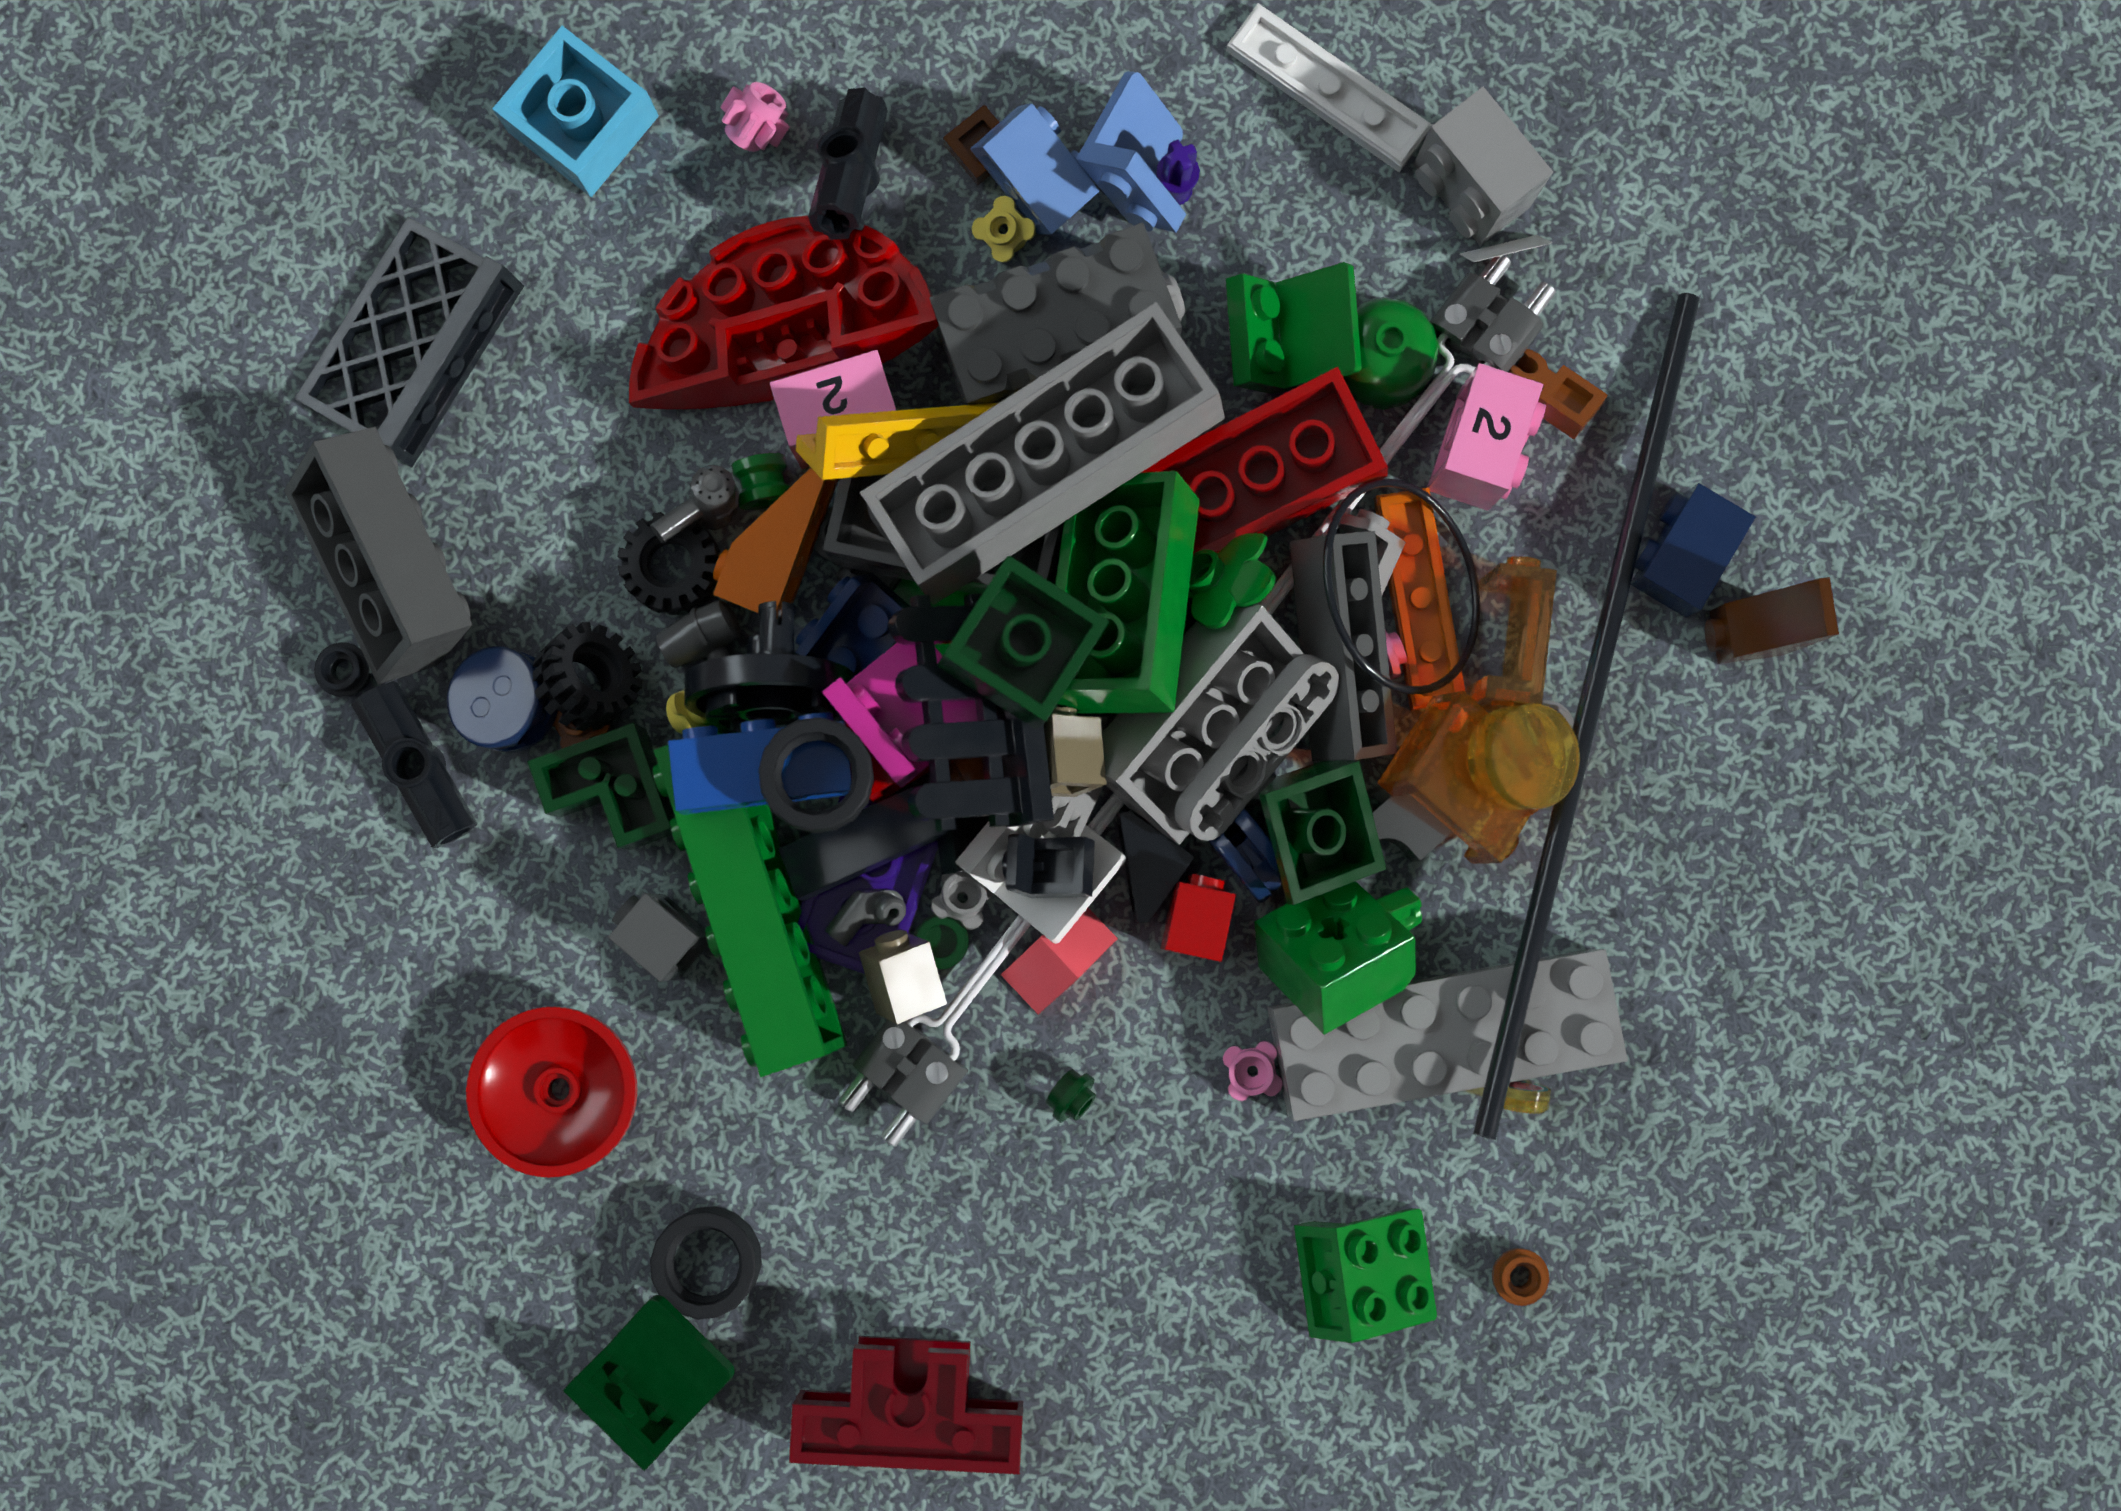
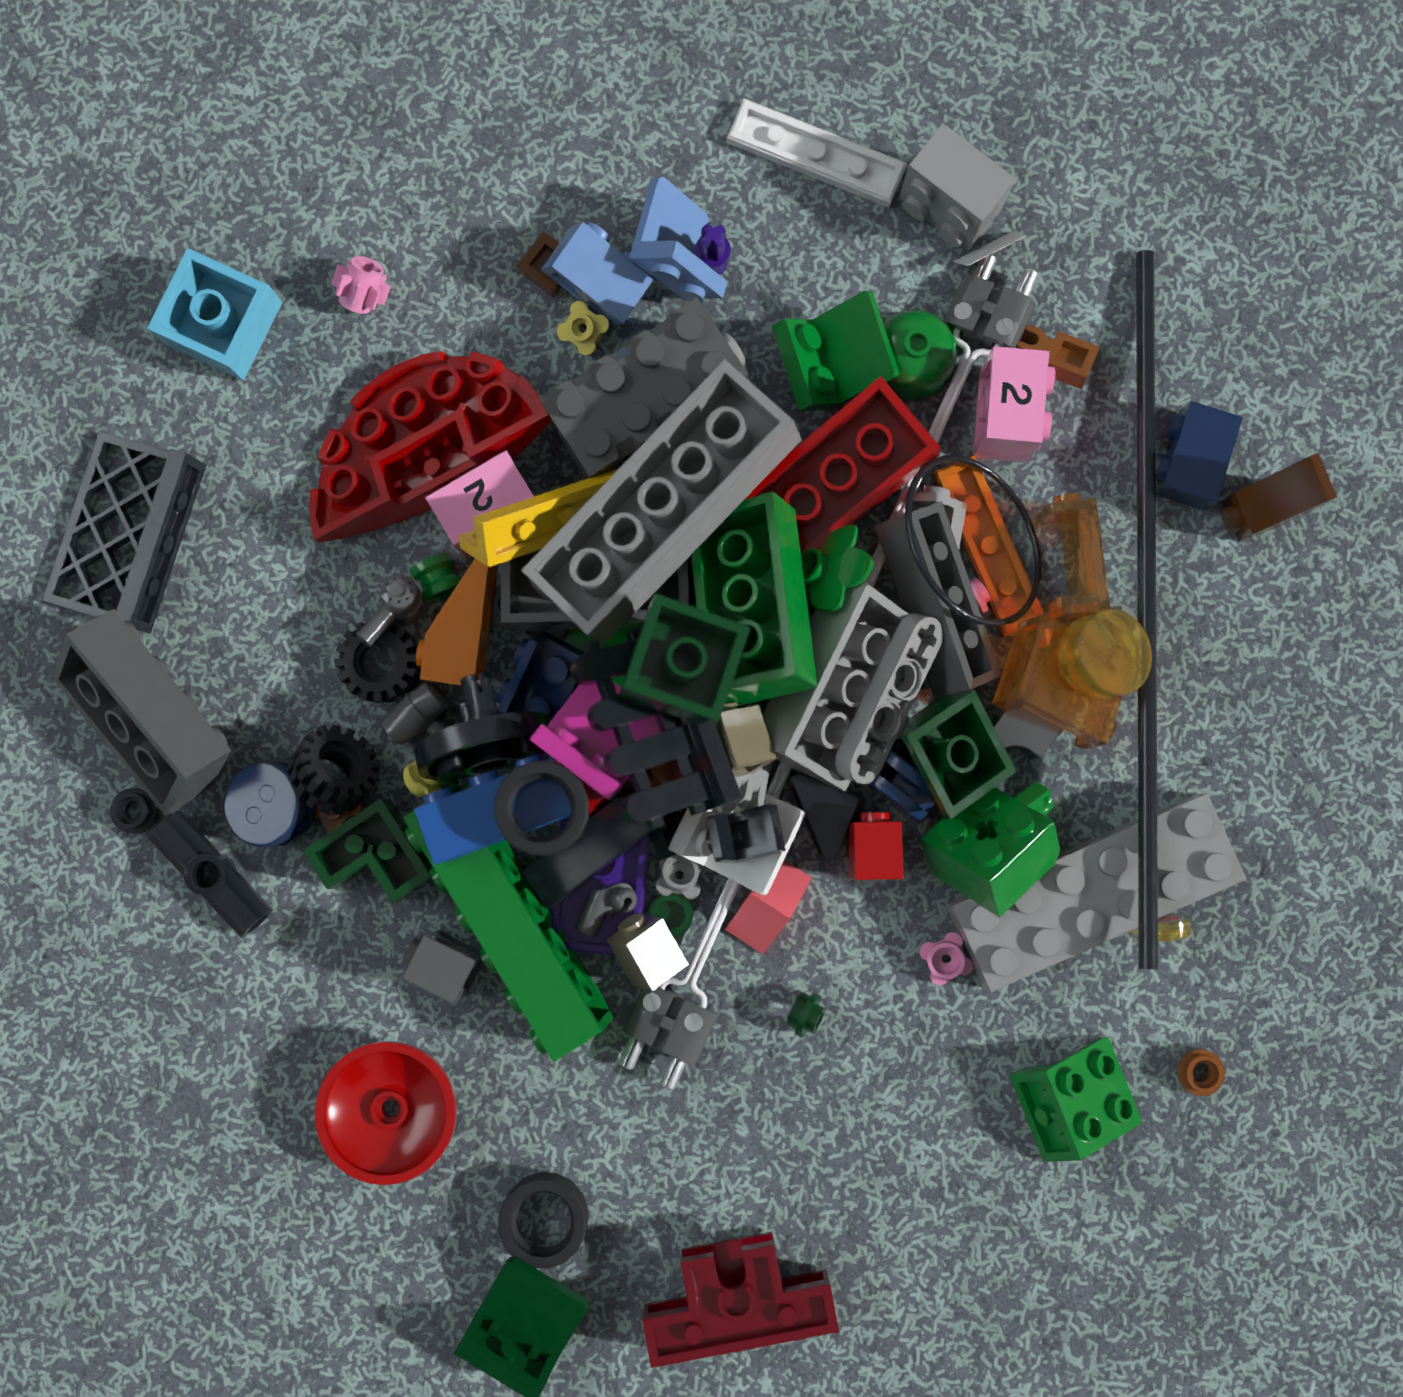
camera: 10 degrees left, 0 degrees up
(848, 164) = (445, 305): black piece -> none

